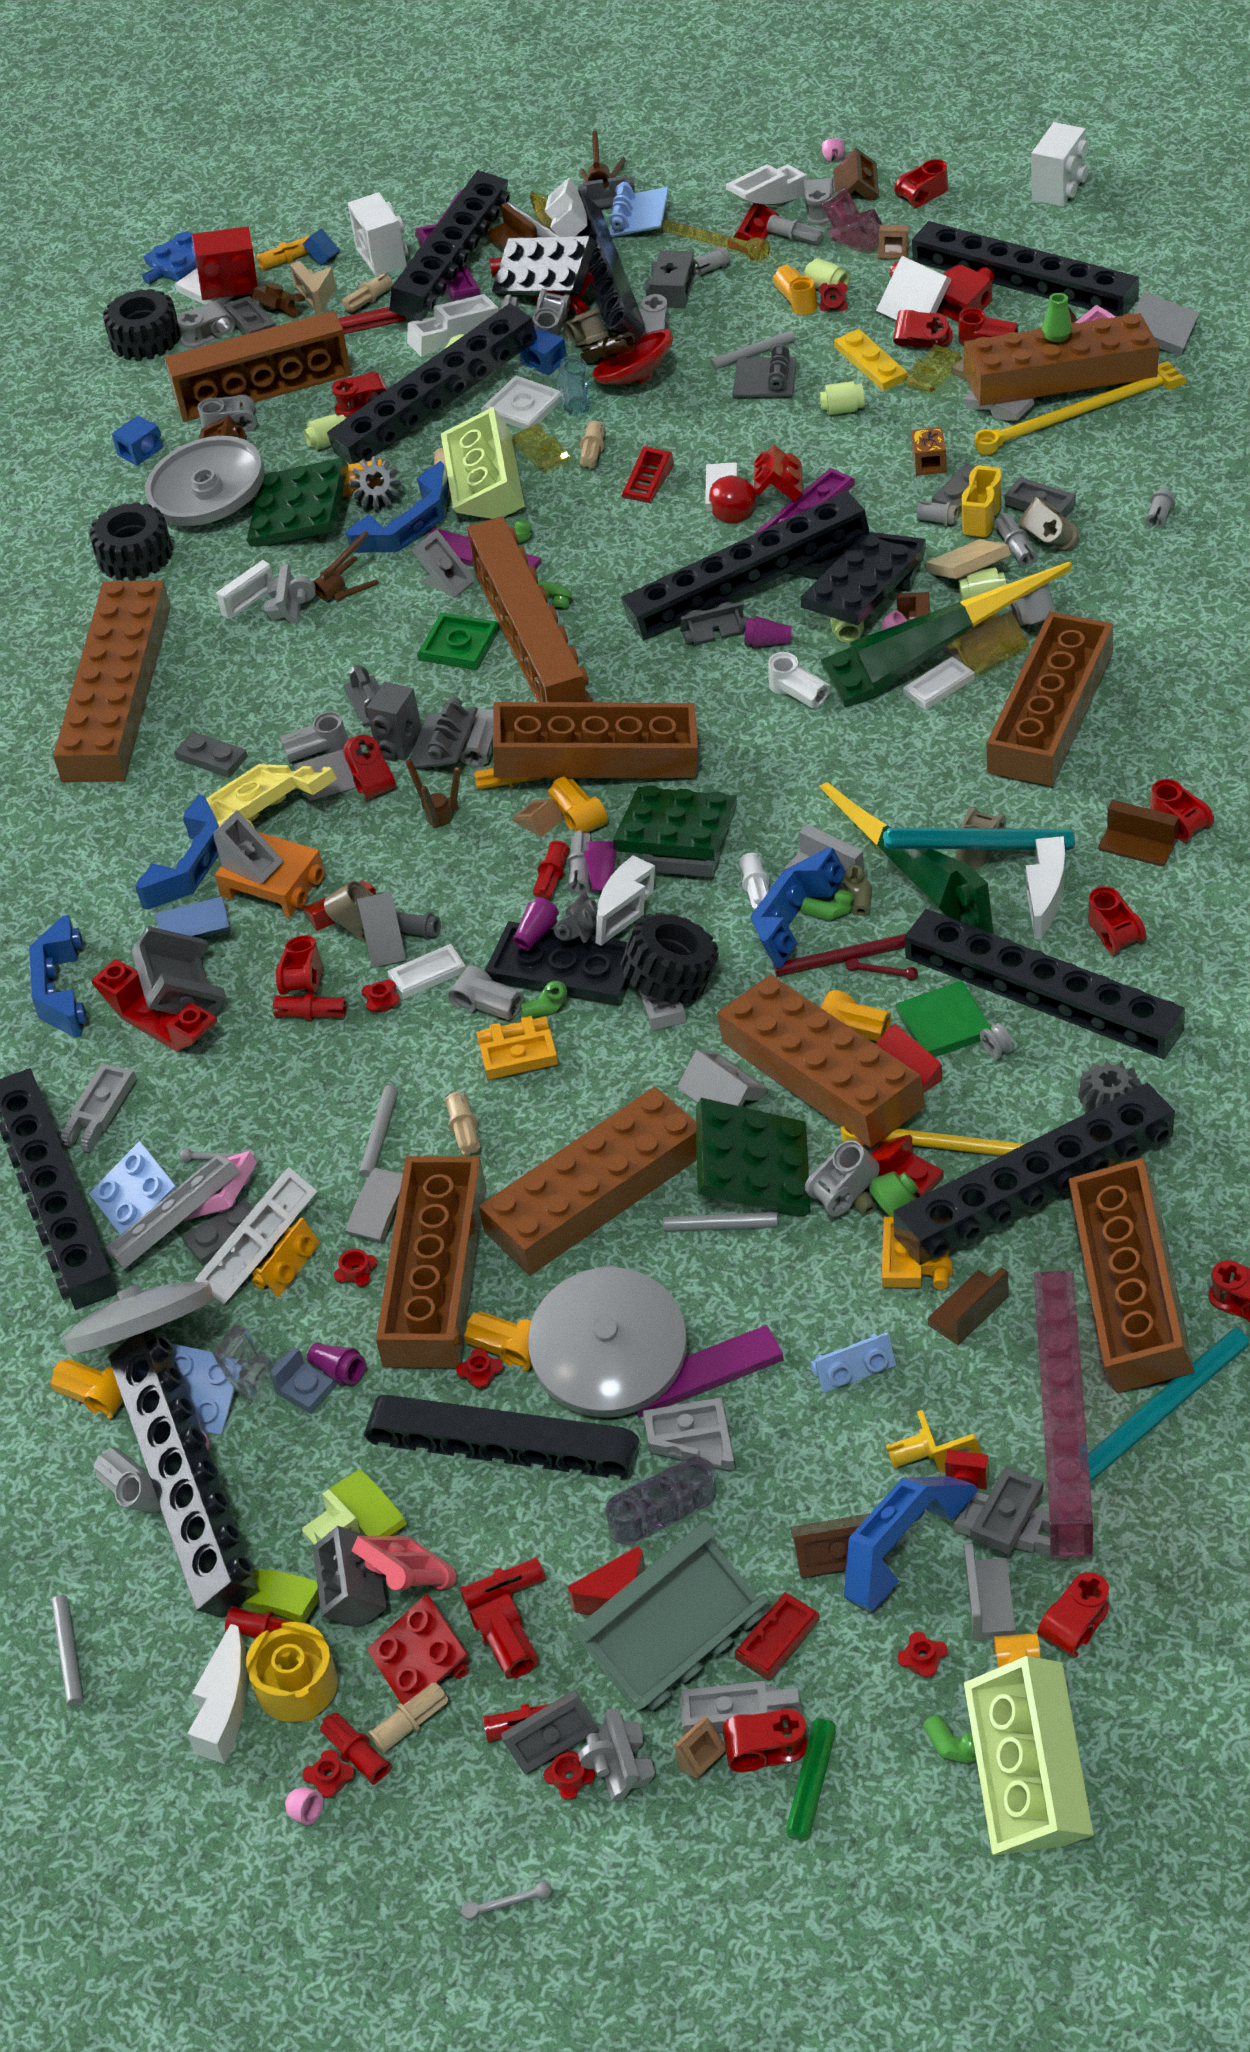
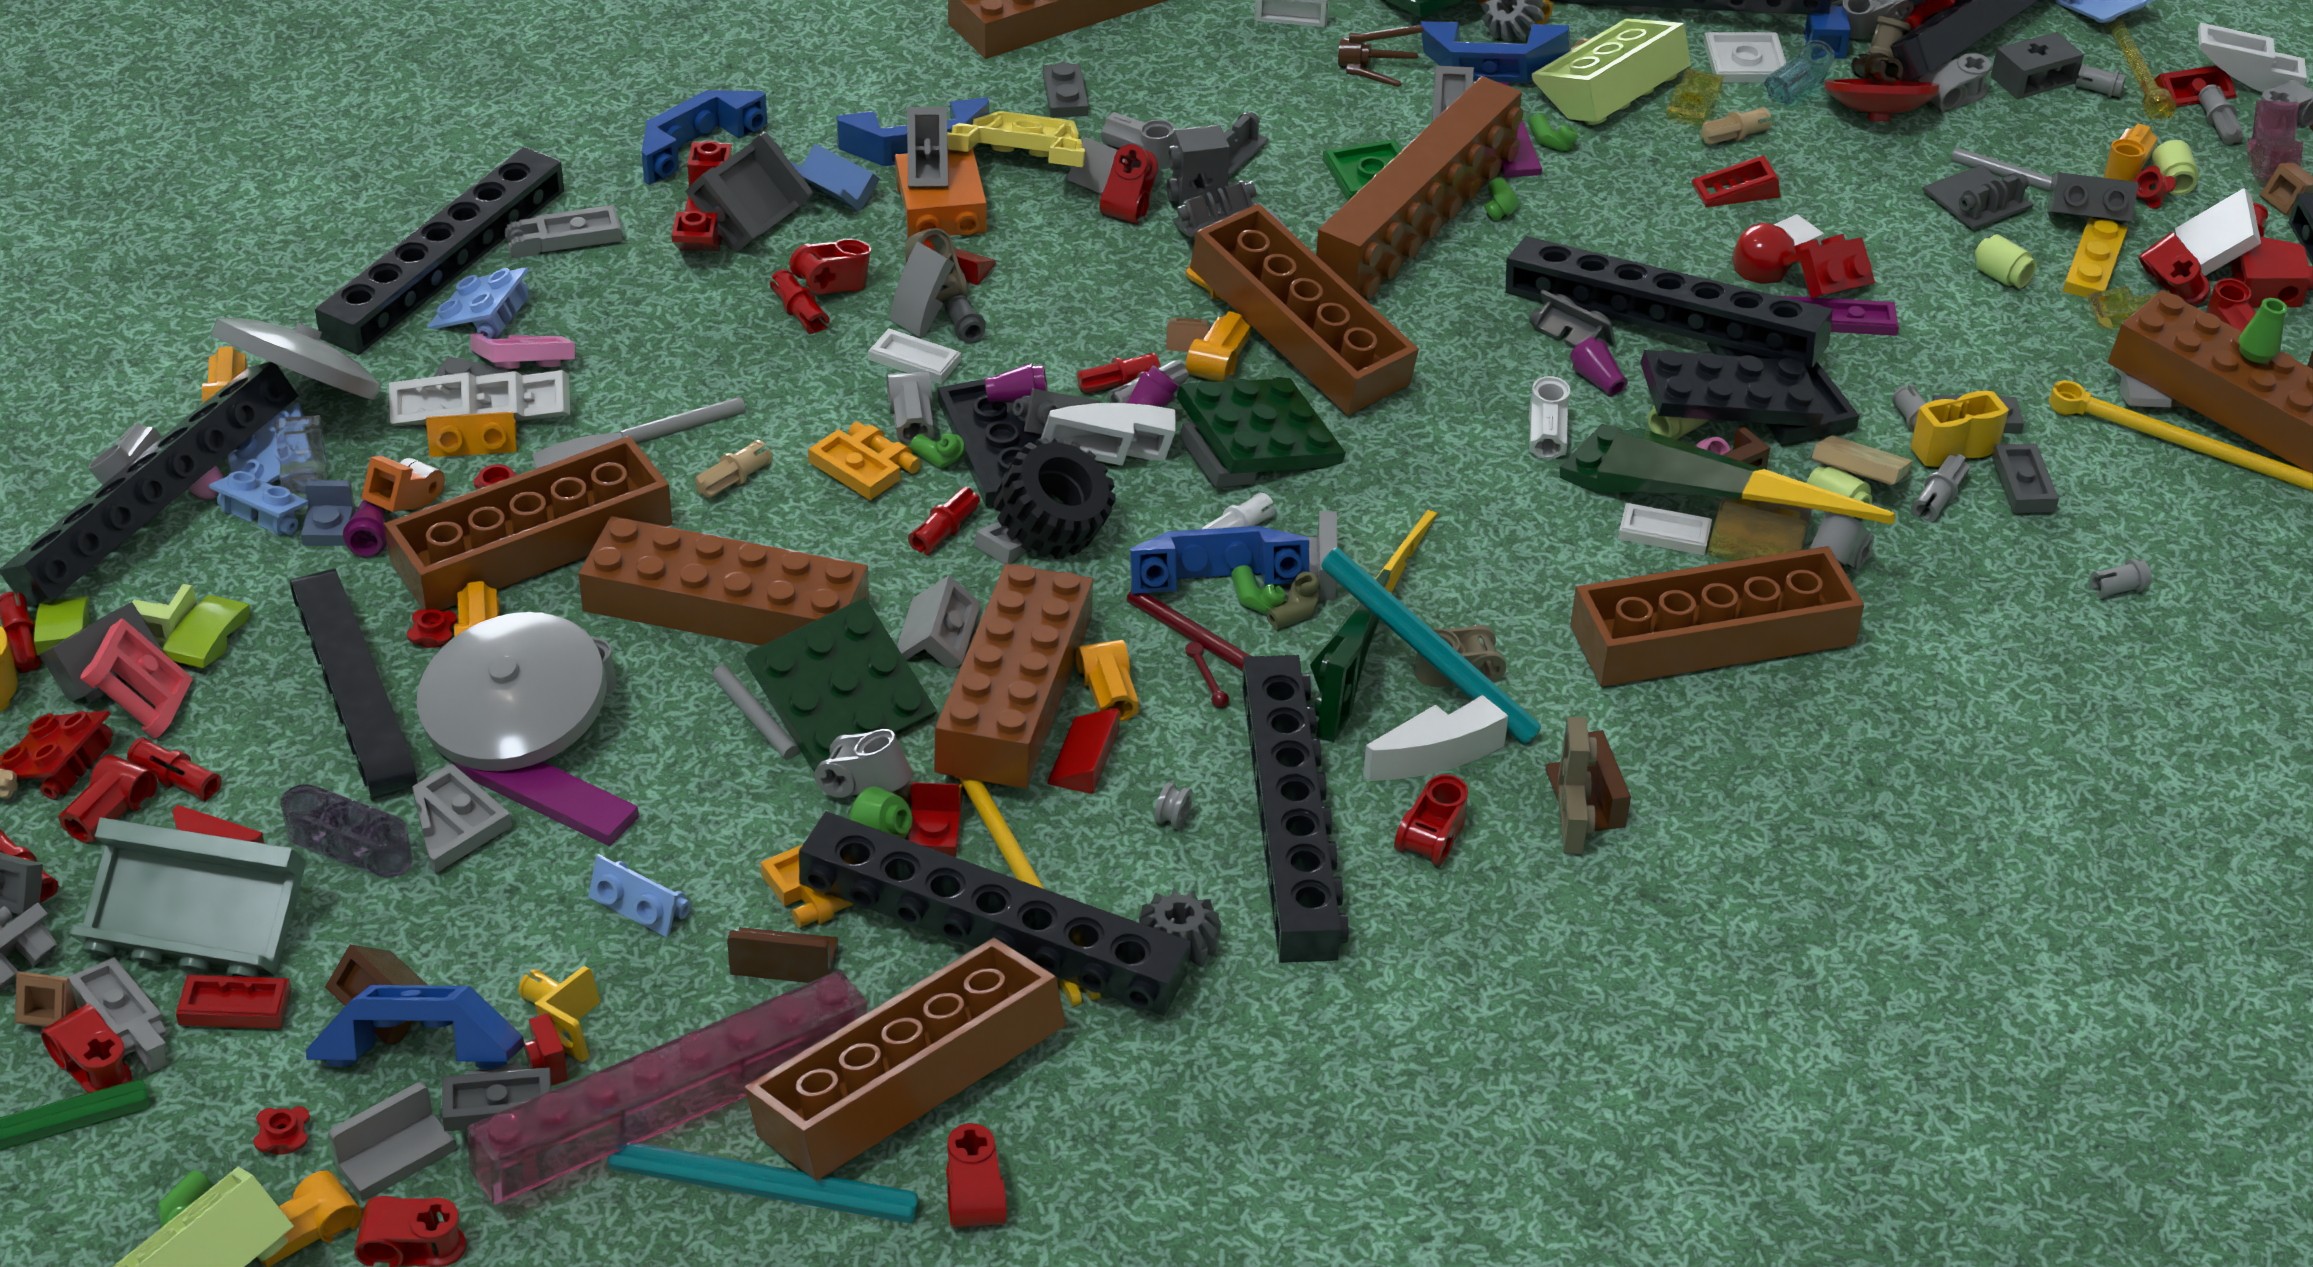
camera: 45 degrees right, 5 degrees down
(172, 1210) = (465, 329): light grey tile -> none
(187, 1155) = (554, 315): light grey hinge -> none
(234, 1421) = (245, 495): none -> light blue hinge
(288, 595) = (1312, 34): light grey hips -> none
(317, 1317) = (401, 484): none -> orange leg
(382, 1002) = (853, 340): red plate -> none
(436, 806) = (1128, 259): reddish brown plant -> none
(620, 1032) = (944, 521): none -> red axle
(825, 326) = (2092, 197): none -> dark grey brick
(928, 451) = (1997, 359): dark orange brick -> none
(943, 1019) = (1174, 751): green tile -> none
(1049, 525) = (1987, 497): dark tan piece -> none
(1143, 841) = (1575, 785): none -> dark tan plate
(1174, 799) = (1656, 798): red piece -> none

